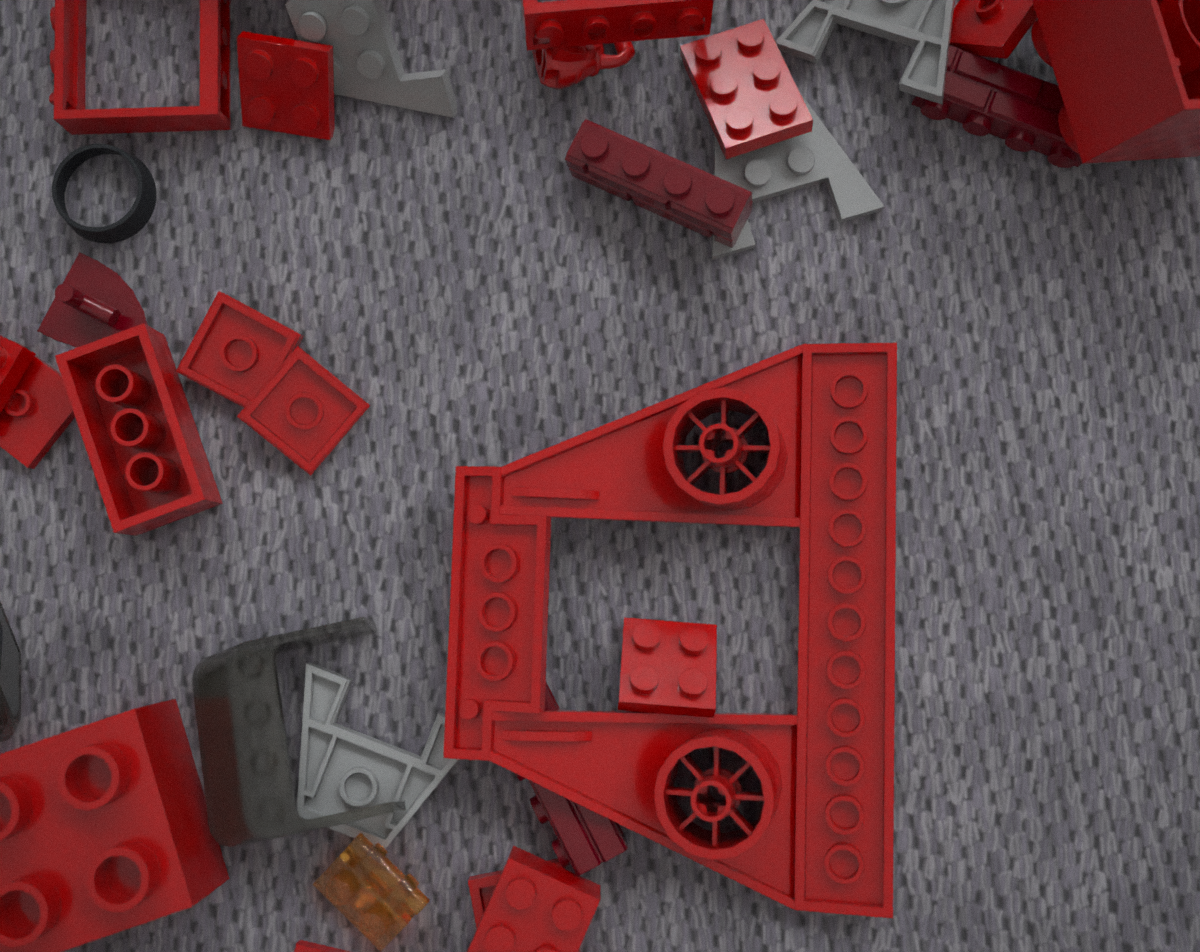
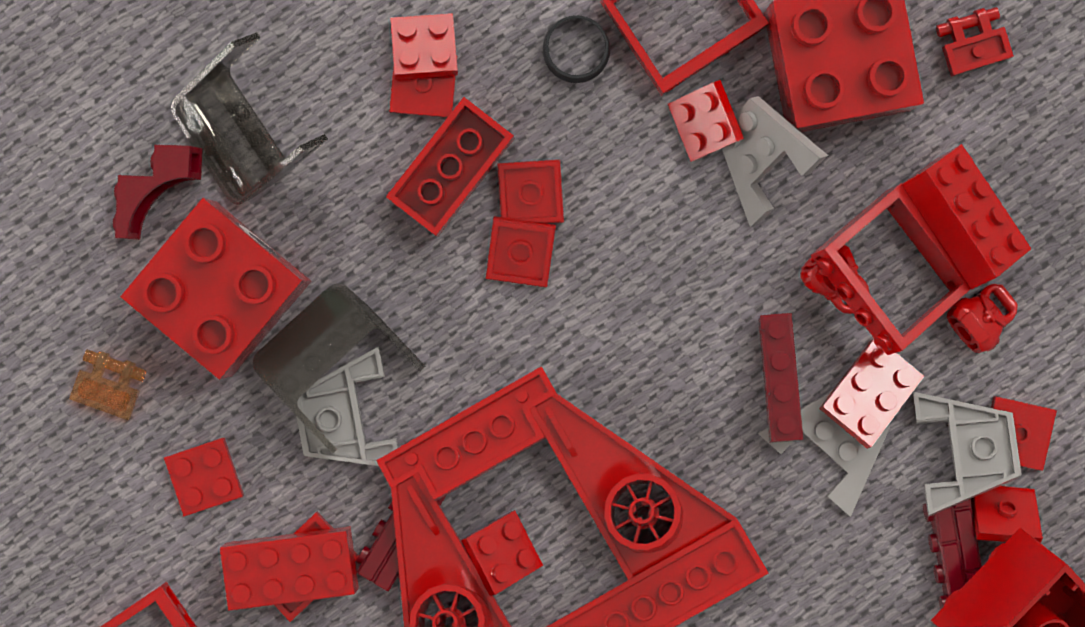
camera: 60 degrees right, 5 degrees up
(91, 305) = (504, 86): dark red shield -> none
(371, 891) = (270, 462): clear orange plate -> none

